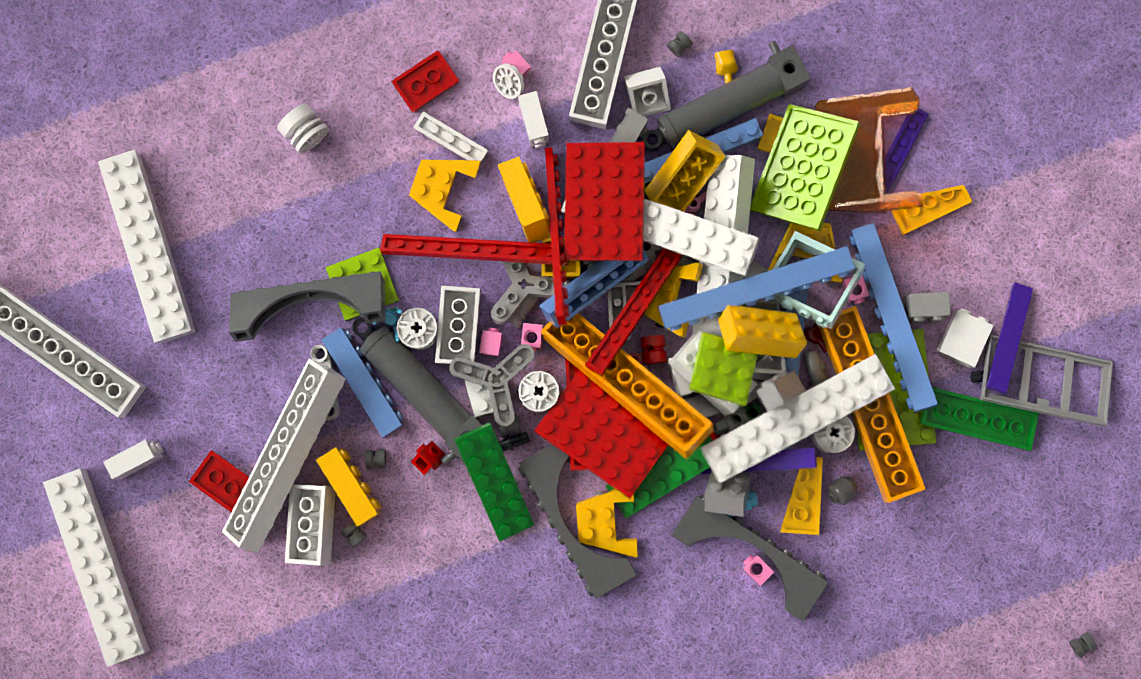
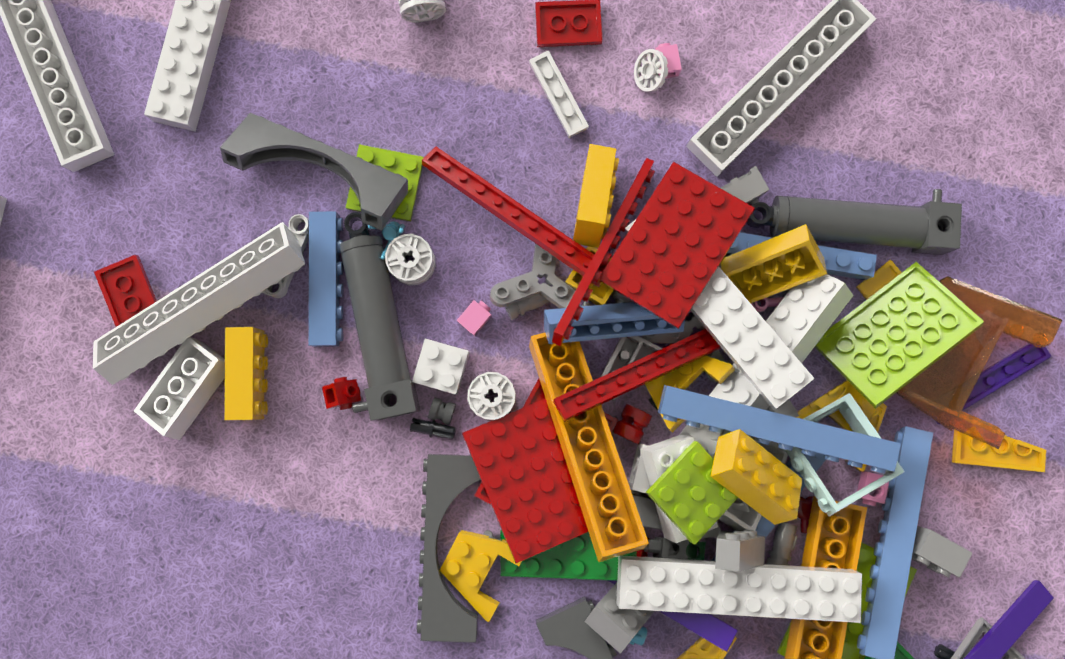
camera: 25 degrees right, 0 degrees up
(134, 459) = (52, 216): white brick -> none
(353, 534) = (220, 425): dark grey wheel -> none
(375, 458) = (290, 362): dark grey wheel -> none
(434, 185) = (515, 128): yellow wing -> none
(457, 324) = (452, 281): white brick -> none
(482, 375) = (444, 345): light grey piece -> none
(494, 481) = (390, 458): green plate -> none
(532, 328) = (518, 327): bright pink brick -> none
(533, 120) = (652, 122): white brick -> none
(648, 92) = (783, 164): white slope -> none
(679, 44) = (841, 137): dark grey wheel -> none
(726, 64) = (876, 184): yellow piece -> none
(830, 444) = (767, 636): white wheel -> none
(964, 338) = (954, 606): white brick -> none

